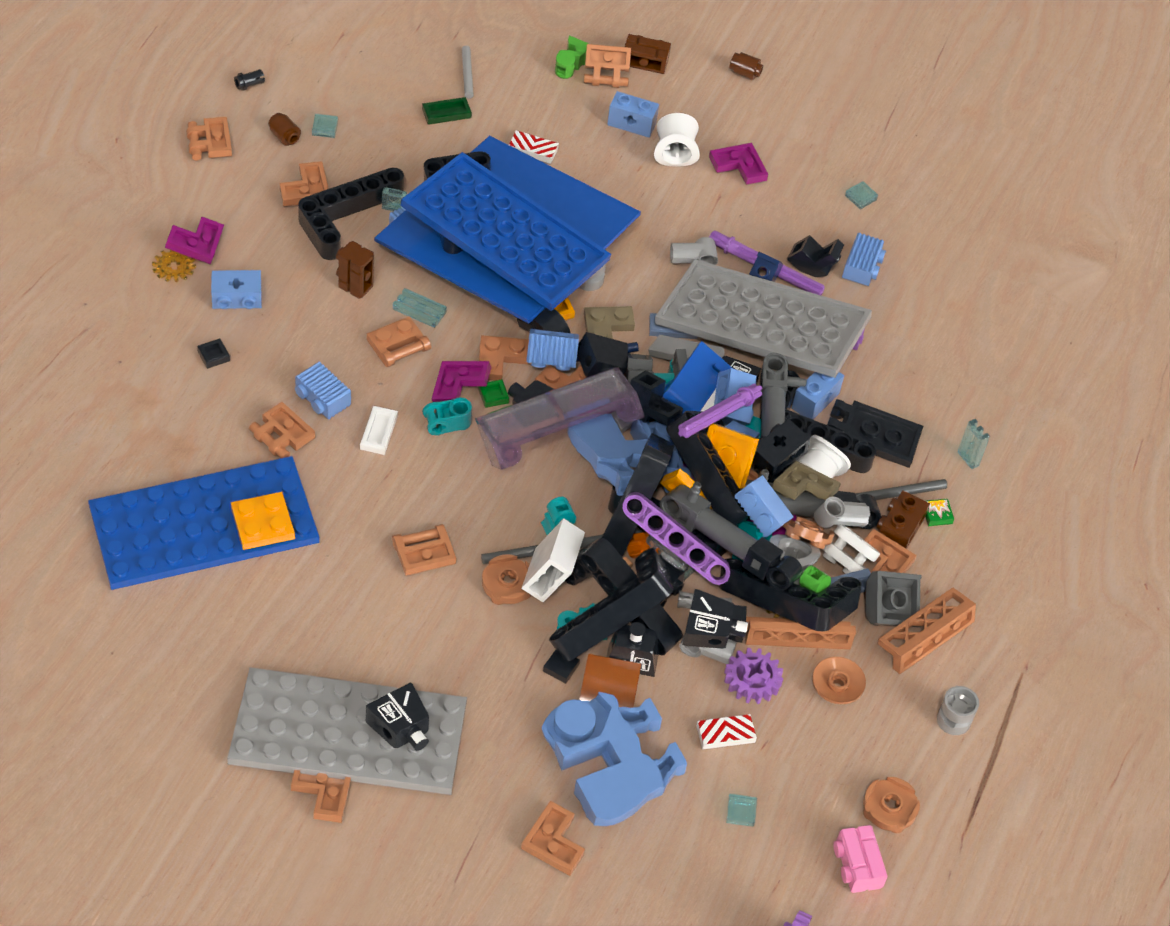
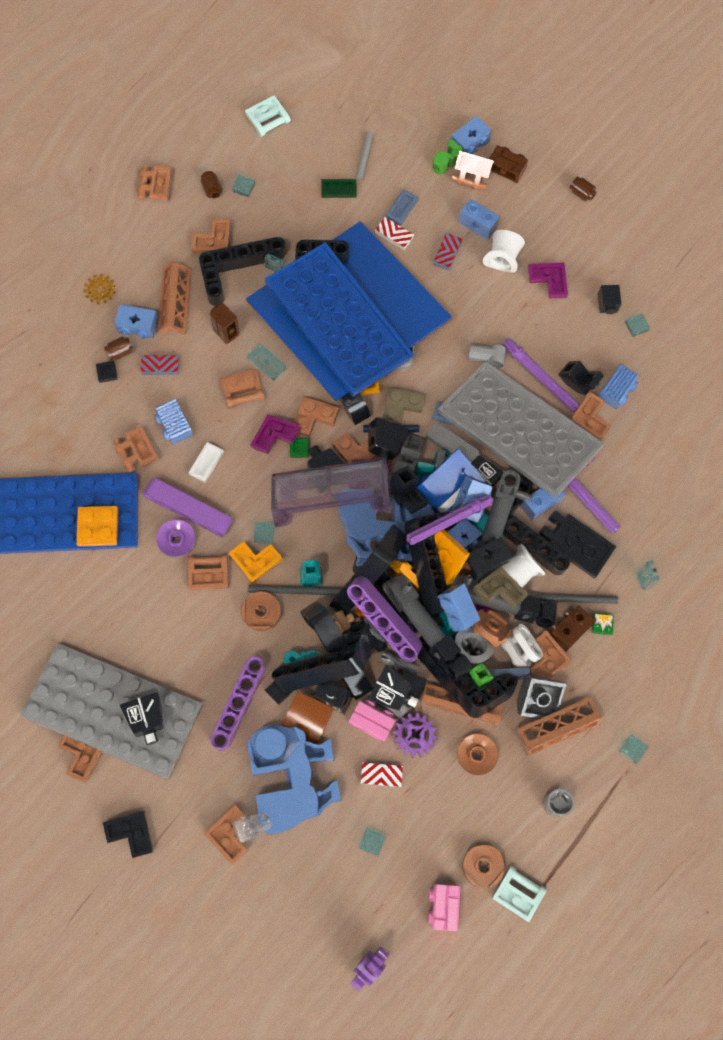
camera: 20 degrees right, 20 degrees up
(199, 244) = (119, 277): magenta plate -> none
(222, 323) = (118, 348): none -> reddish brown brick
(249, 79) = (199, 134): black pin -> none
(272, 258) = (169, 293): none -> nougat fence
(282, 334) = (159, 364): none -> tile
(327, 42) = (264, 111): none -> light aqua plate
(369, 510) = (172, 530): none -> medium lavender dish
(372, 481) = (187, 507): none -> medium lavender beam
(422, 859) = (131, 827): none -> black plate
(449, 415) = (253, 463): teal piece -> none
(481, 493) = (264, 532): none -> clear light blue tile
(481, 530) = (255, 565): none -> light orange plate
(514, 697) = (238, 713): none -> medium lavender beam
(533, 117) = (402, 207): none -> sand blue tile
(552, 349) = (349, 424): medium blue brick -> none
(553, 560) = (292, 610): white brick -> none
(581, 814) = (250, 826): none -> clear piece
(595, 28) = (472, 135): none -> medium blue brick
(605, 155) = (447, 251): none -> tile
(694, 671) = (372, 721): none -> bright pink brick
(772, 265) = (540, 379): dark blue brick -> none
(819, 171) = (609, 299): none -> black brick
(838, 288) = (586, 416): none -> nougat plate
(841, 513) = (522, 620): light grey piece -> none
(879, 388) = (590, 502): none -> medium lavender axle
(943, 831) = (515, 899): none -> light aqua plate
(1025, 638) = (633, 749): none -> clear light blue tile

